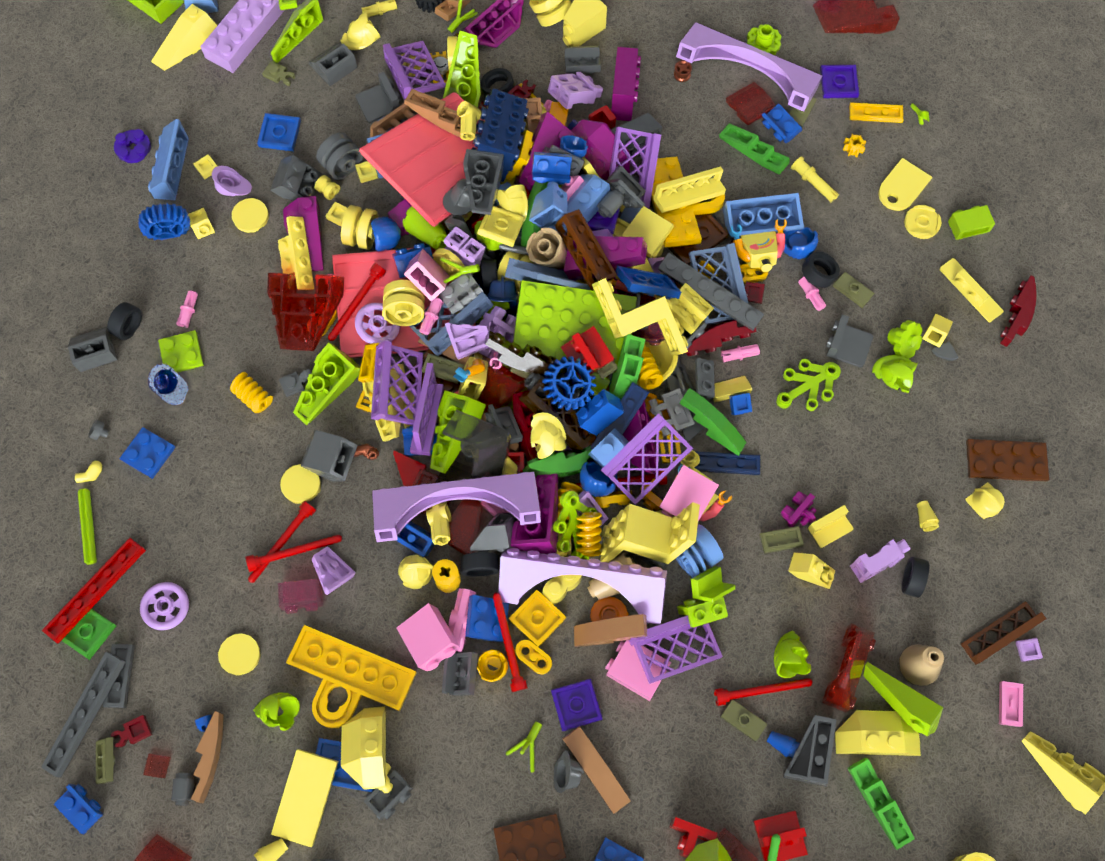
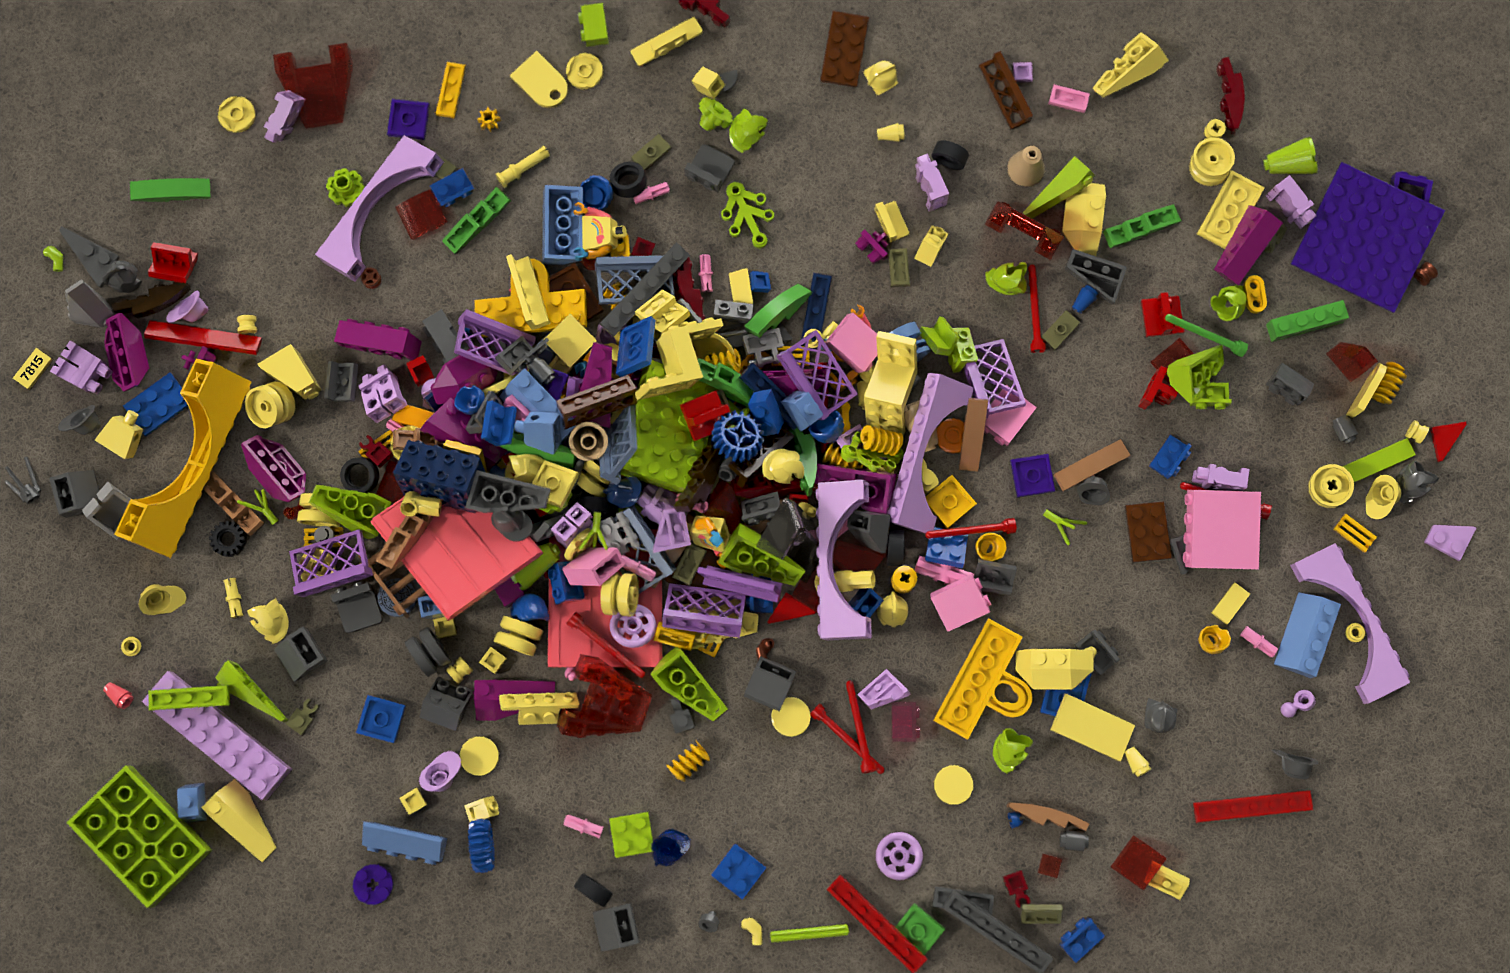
camera: 85 degrees left, 10 degrees up
(534, 656) = (984, 509): yellow plate -> none
(921, 114) = (461, 45): lime hand -> none

